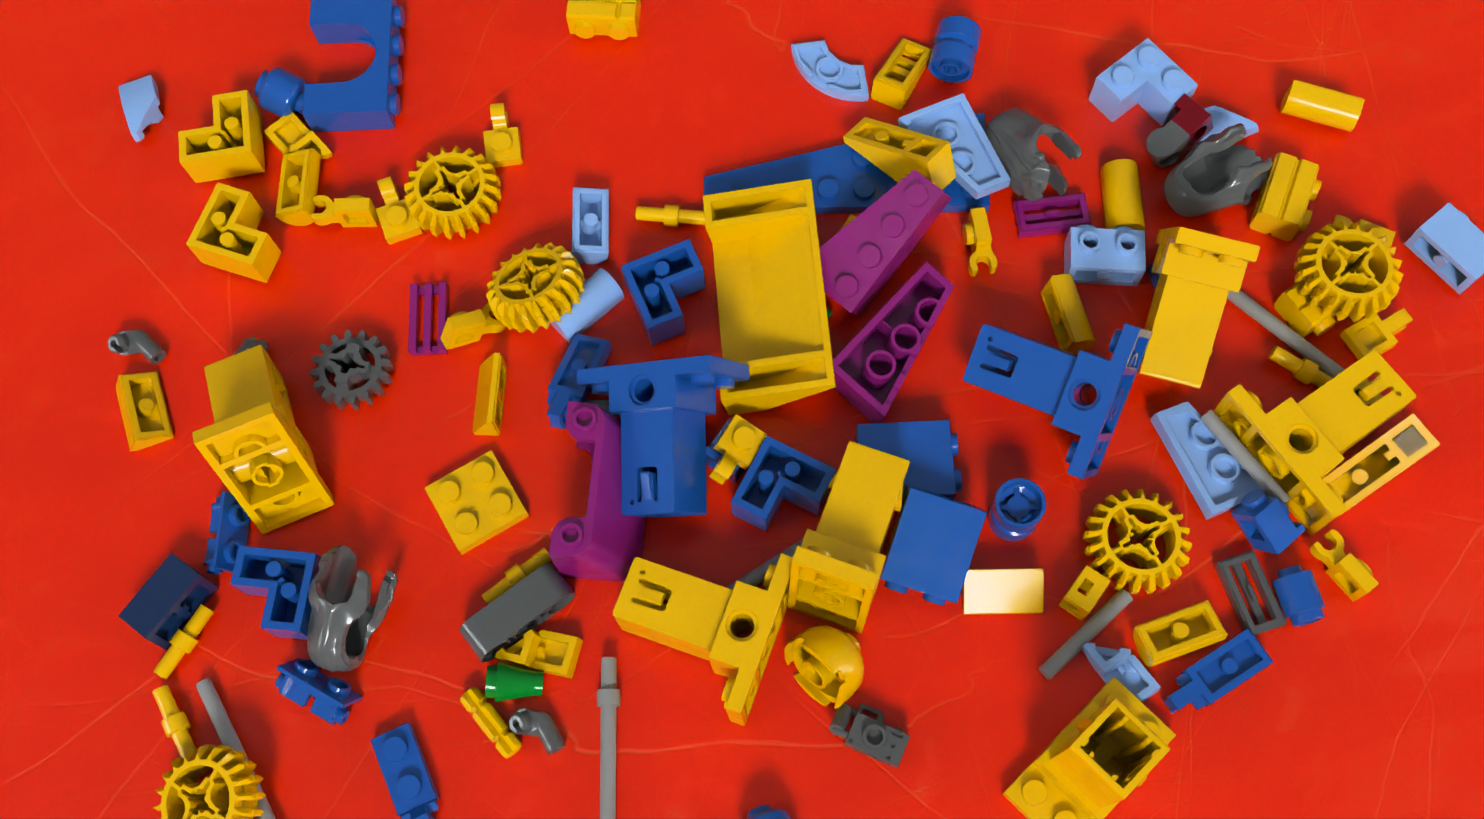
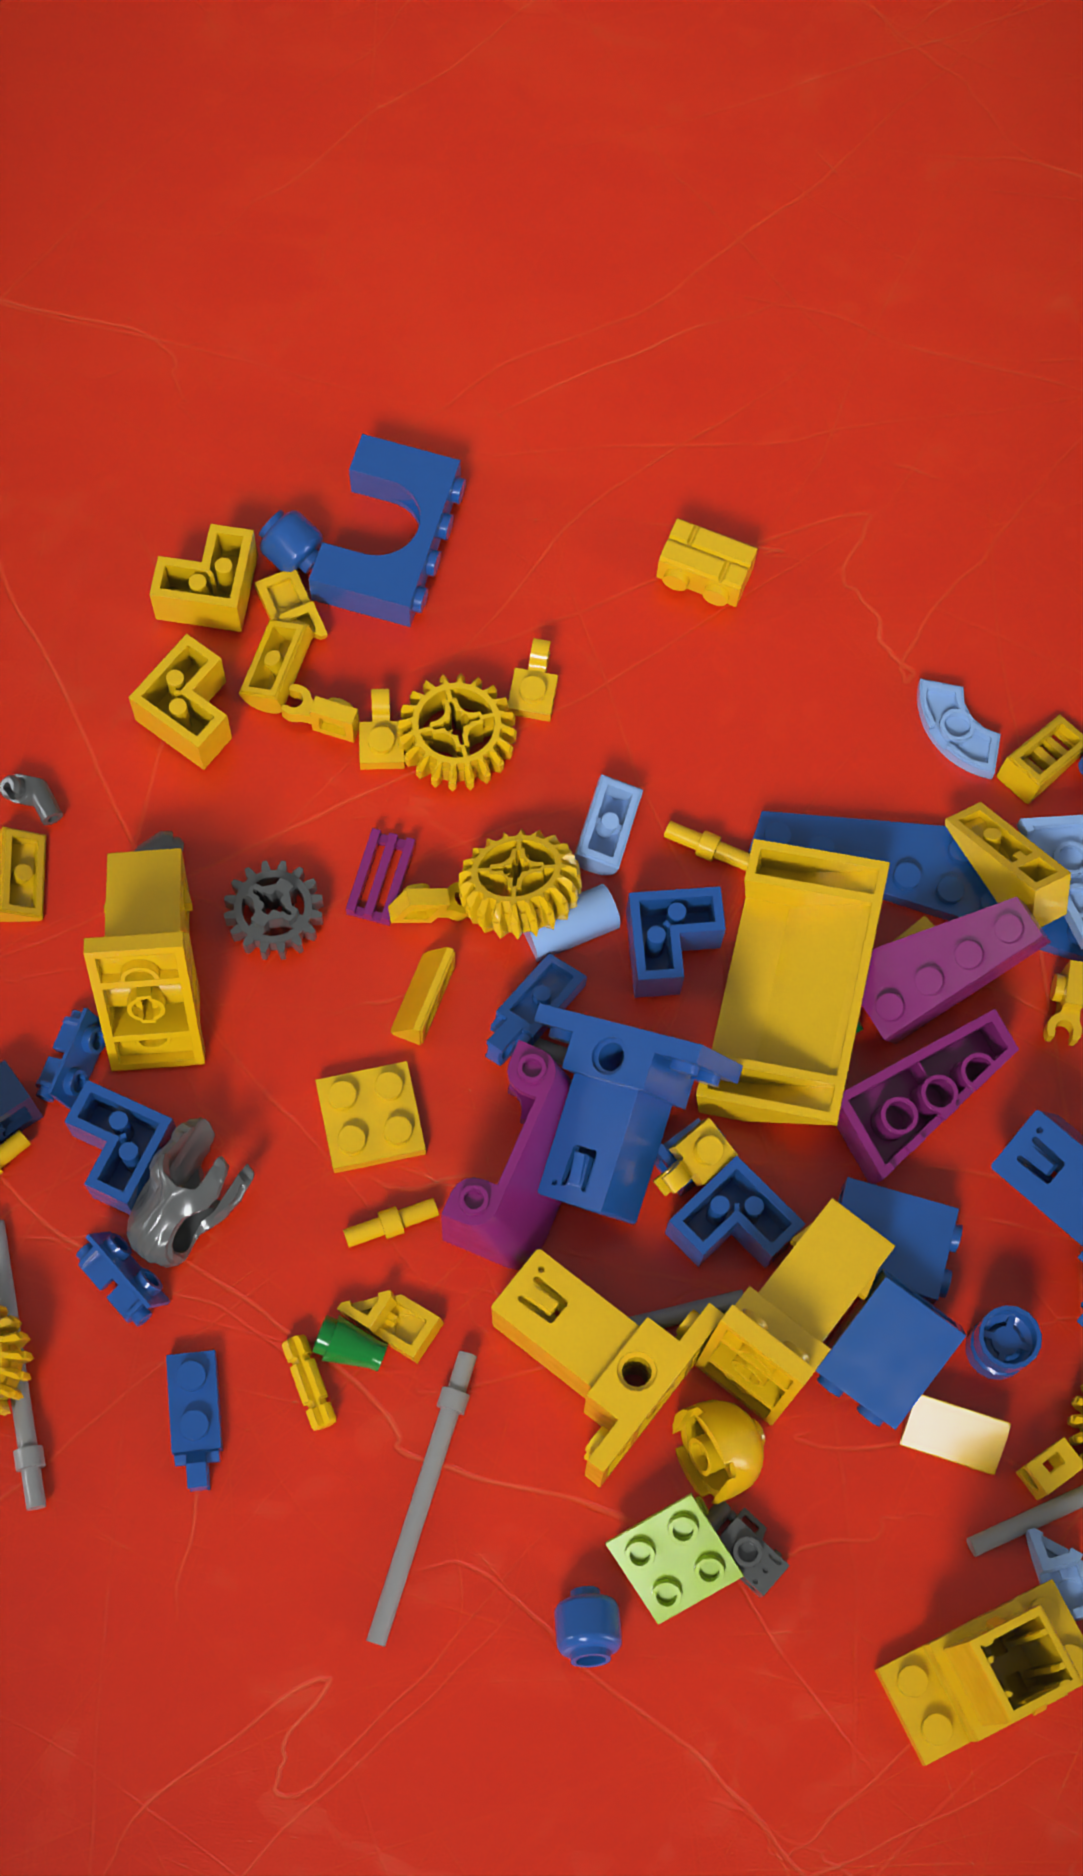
camera: 10 degrees right, 0 degrees up
(140, 105) = (119, 501): light blue slope -> none
(517, 612) = (379, 1264): dark grey beam -> none
(540, 725) = (363, 1404): dark grey arm -> none
(819, 760) = (675, 1558): none -> lime hinge

